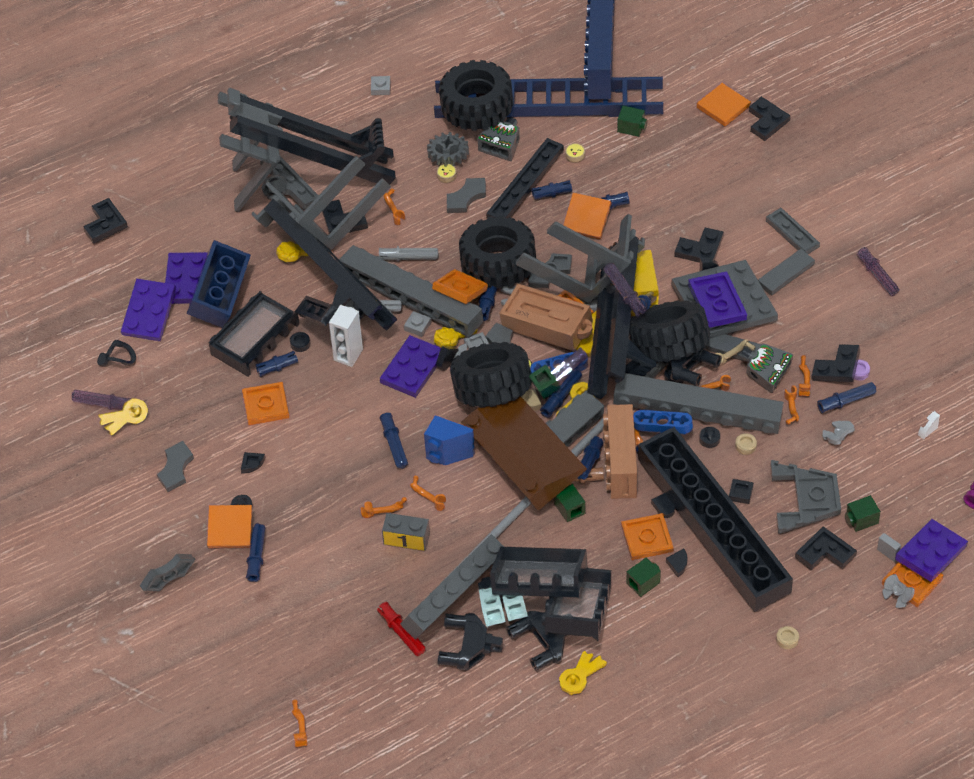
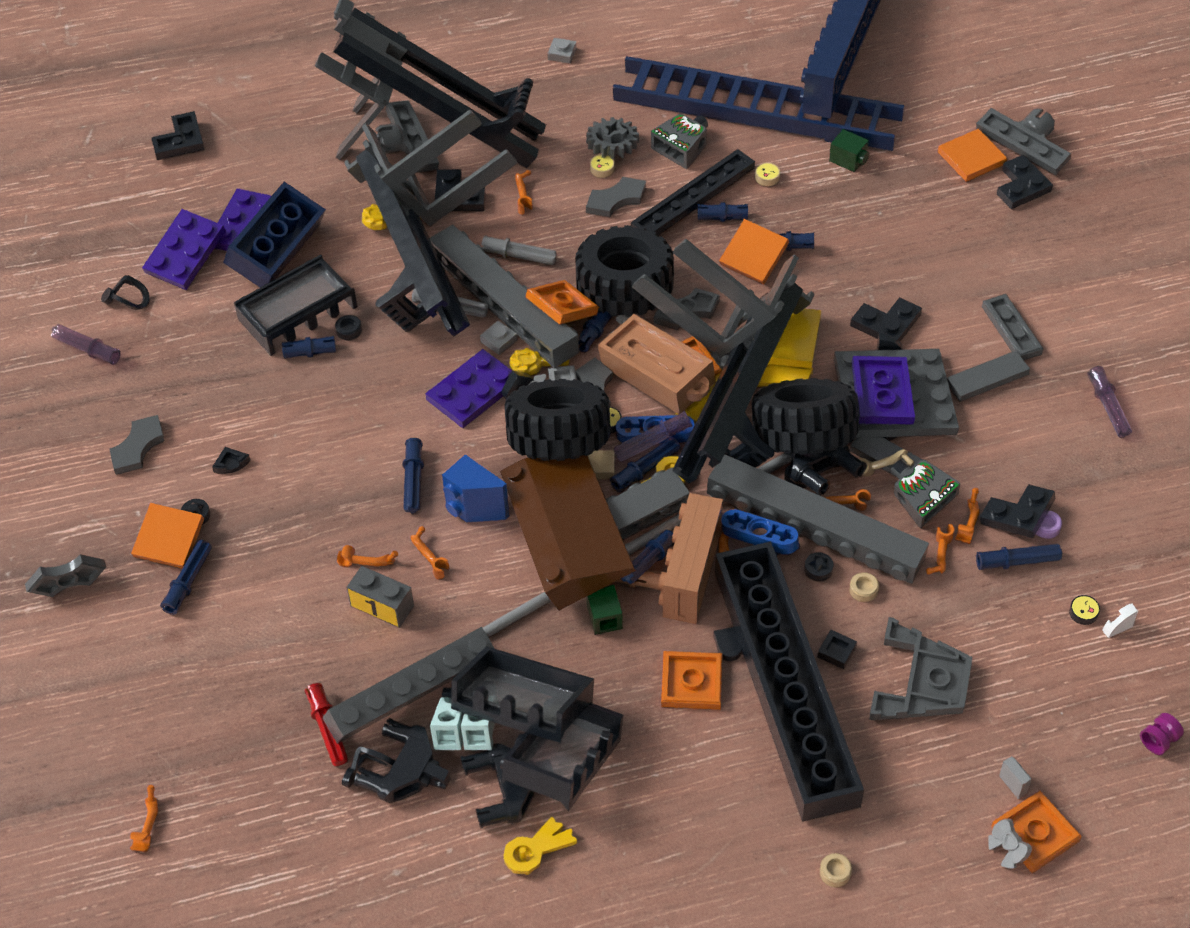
camera: 15 degrees right, 0 degrees up
(133, 412) = (113, 365): yellow piece -> none
(265, 403) = (276, 392): orange tile -> none
(316, 310) = (370, 292): black plate -> none
(346, 335) = (397, 330): white brick -> none
(456, 643) = (358, 760): none -> black piece
(476, 111) = (664, 79): black tyre -> none
(544, 381) = (623, 444): dark green brick -> none
(630, 296) = (759, 349): clear purple axle -> none
(643, 576) = (666, 734): dark green brick -> none
(647, 299) = (784, 371): dark blue axle -> none
(678, 562) = (720, 725): black tile -> none
(760, 82) = (1026, 137): none -> dark grey plate
(828, 545) = (926, 751): black plate -> none
(841, 429) = (999, 598): light grey piece -> none
(862, 513) = (992, 721): dark green brick -> none
(902, 423) = (1084, 610): none -> tile
(931, 550) = (1074, 797): dark purple plate -> none

